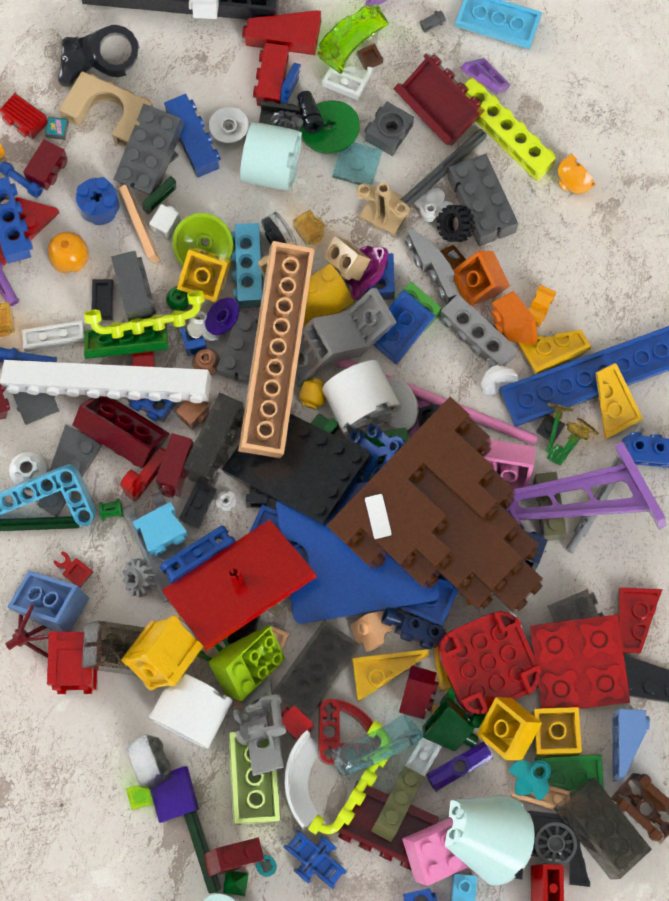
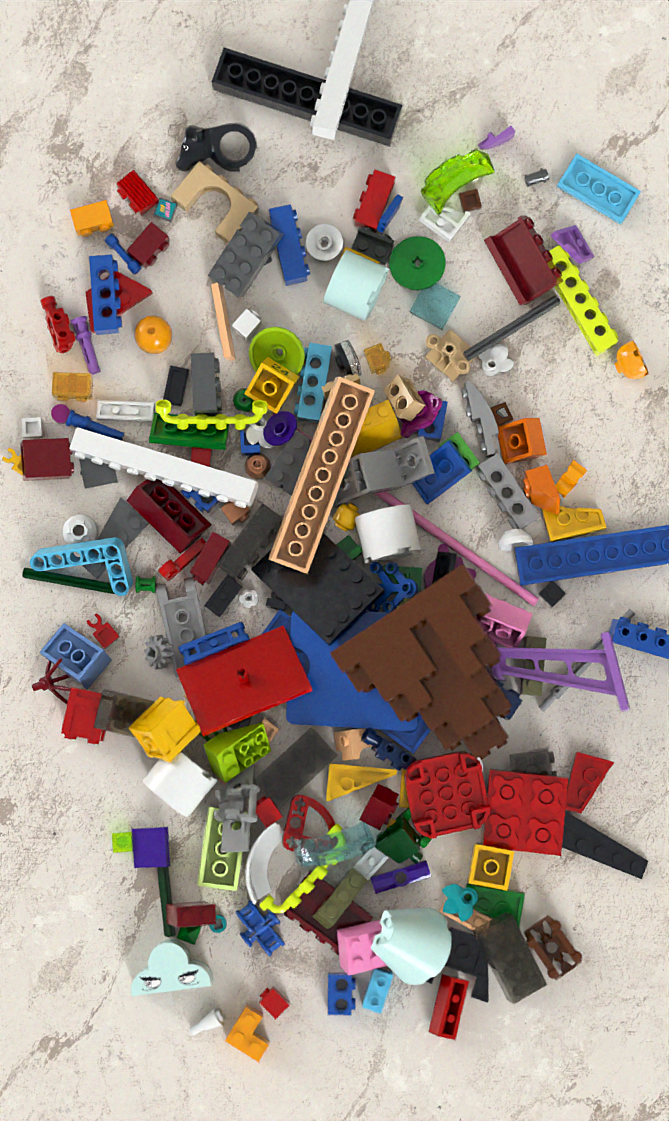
camera: 10 degrees right, 10 degrees up
(97, 190) = (181, 284): blue brick -> none
(149, 761) = (135, 815): clear smoke brick -> none
(159, 195) = (247, 297): dark green tile -> none
(160, 529) = (185, 614): medium azure hips -> none
(287, 120) = (371, 253): dark grey gear -> none
(294, 30) = (400, 160): red slope -> none
(310, 115) = (402, 251): black axle -> none
(378, 516) = (375, 656): white sticker -> none
(389, 117) = (470, 266): dark grey brick -> none
(408, 414) = (428, 543): white piece -> none
(464, 223) = (519, 384): black tyre -> none
(484, 197) = (541, 365): dark grey piece -> none
(509, 728) = (450, 856): yellow brick -> none
(555, 843) = (467, 961): dark grey wheel -> none
(559, 453) = (573, 608): plant -> none
(616, 401) = (616, 585): yellow wing -> none
(627, 734) = (551, 884): medium blue slope -> none

